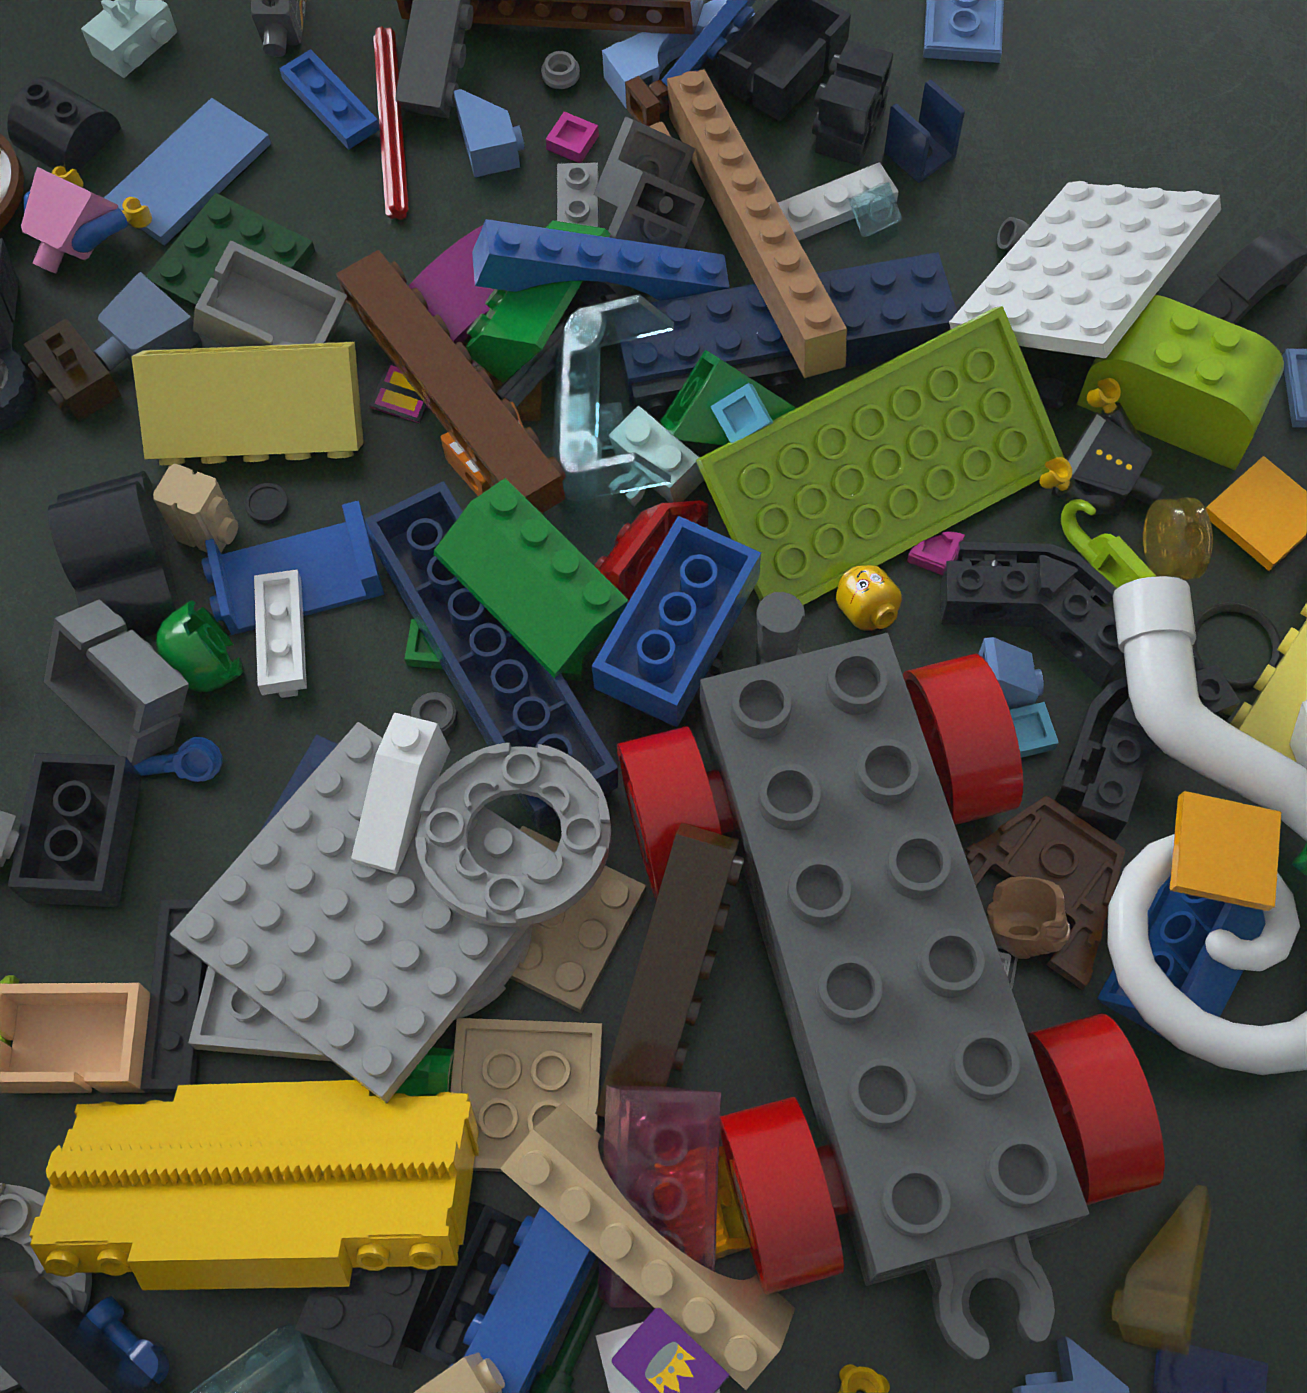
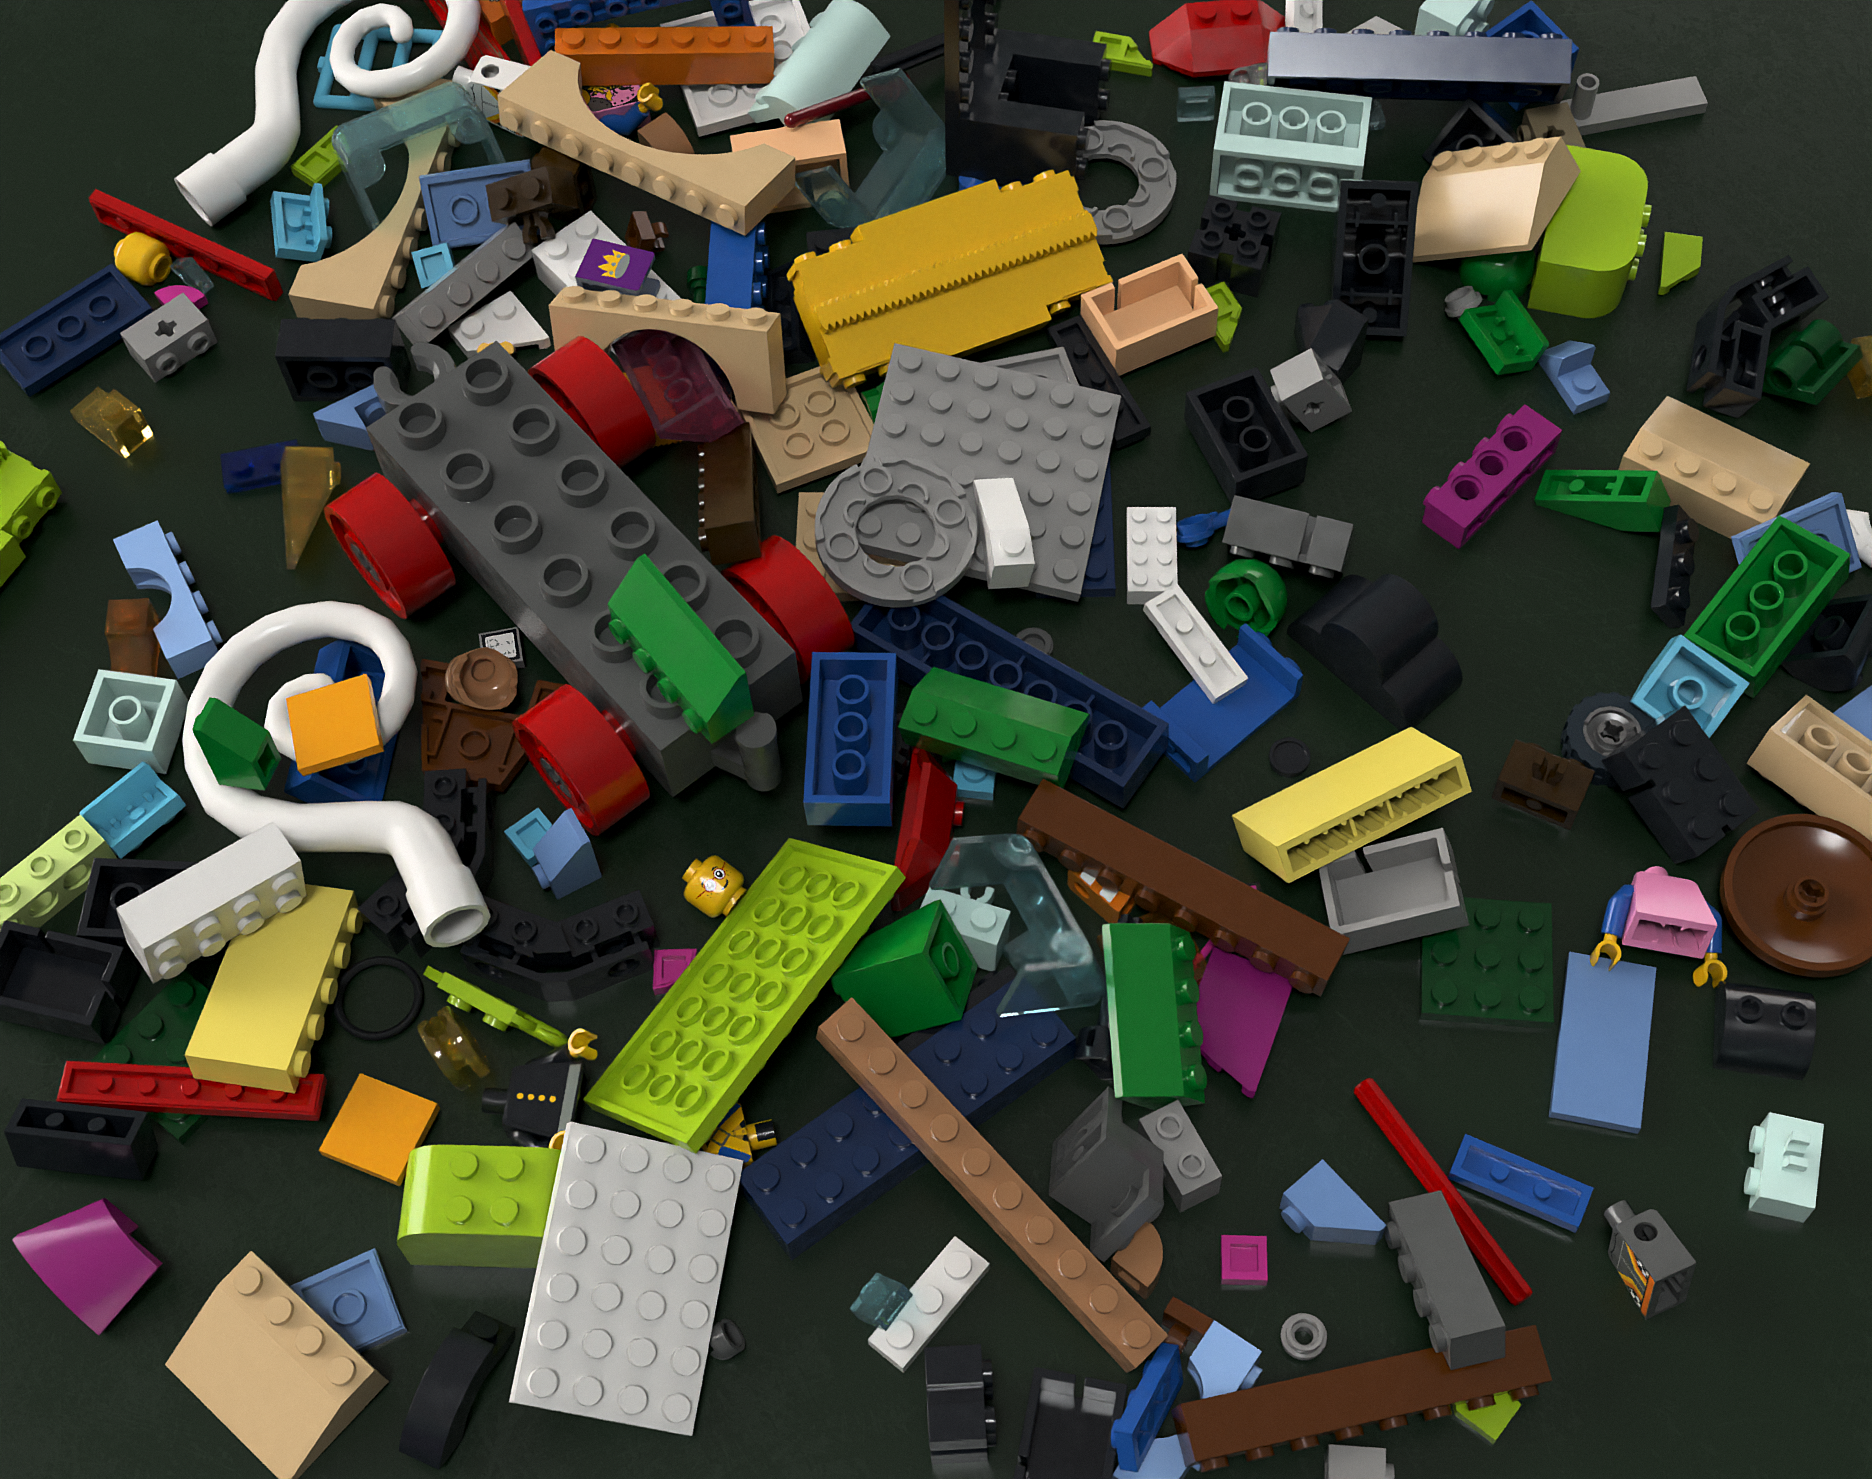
camera: 155 degrees right, 5 degrees down
(142, 321) = (1511, 853): sand blue torso -> none
(195, 508) = (1328, 695): tan brick -> none
(257, 757) = (1150, 552): none -> white piece
(527, 256) = (1150, 1013): blue arch -> none
(741, 413) = (881, 925): medium azure plate -> none
(834, 671) = (679, 651): none -> green slope
(936, 130) = (873, 1388): dark blue piece -> none

